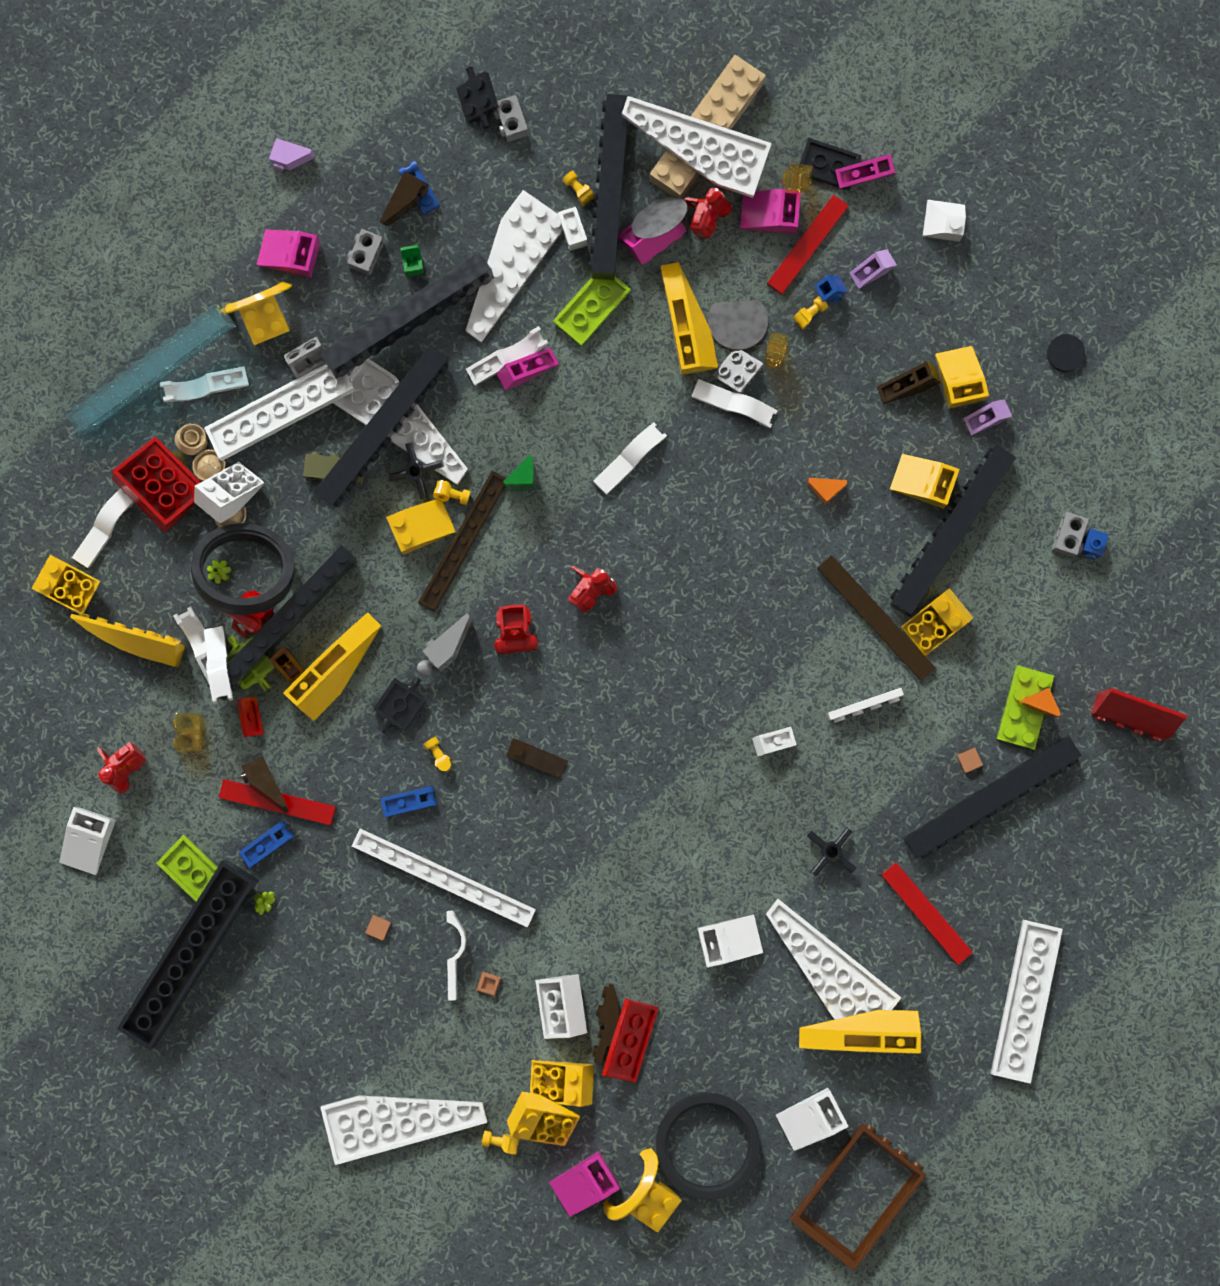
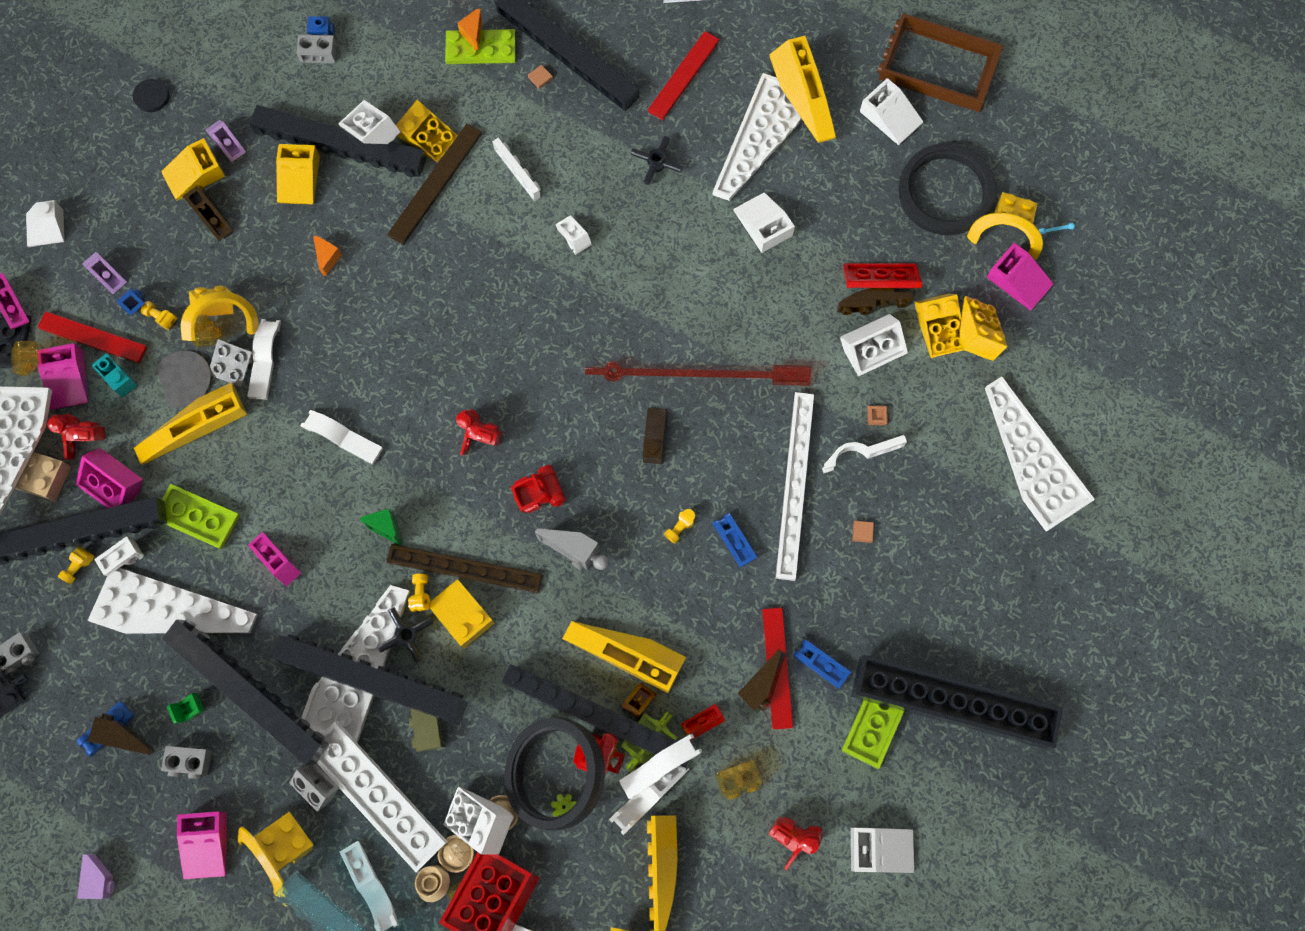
camera: 110 degrees left, 10 degrees down
(263, 901) = (878, 648): lime plant -> none
(399, 704) = (643, 578): black plate -> none
(494, 362) = (266, 582): white piece -> none
(507, 1143) = (1011, 354): yellow leg -> none
(558, 900) = (781, 374): none -> clear red bar
(628, 1263) = (1071, 226): none -> medium azure hinge
(659, 217) = (90, 474): flat silver sticker -> none
(757, 258) = (114, 375): none -> teal slope
(802, 365) = (215, 302): none -> yellow piece
(953, 565) = (370, 124): none -> white slope

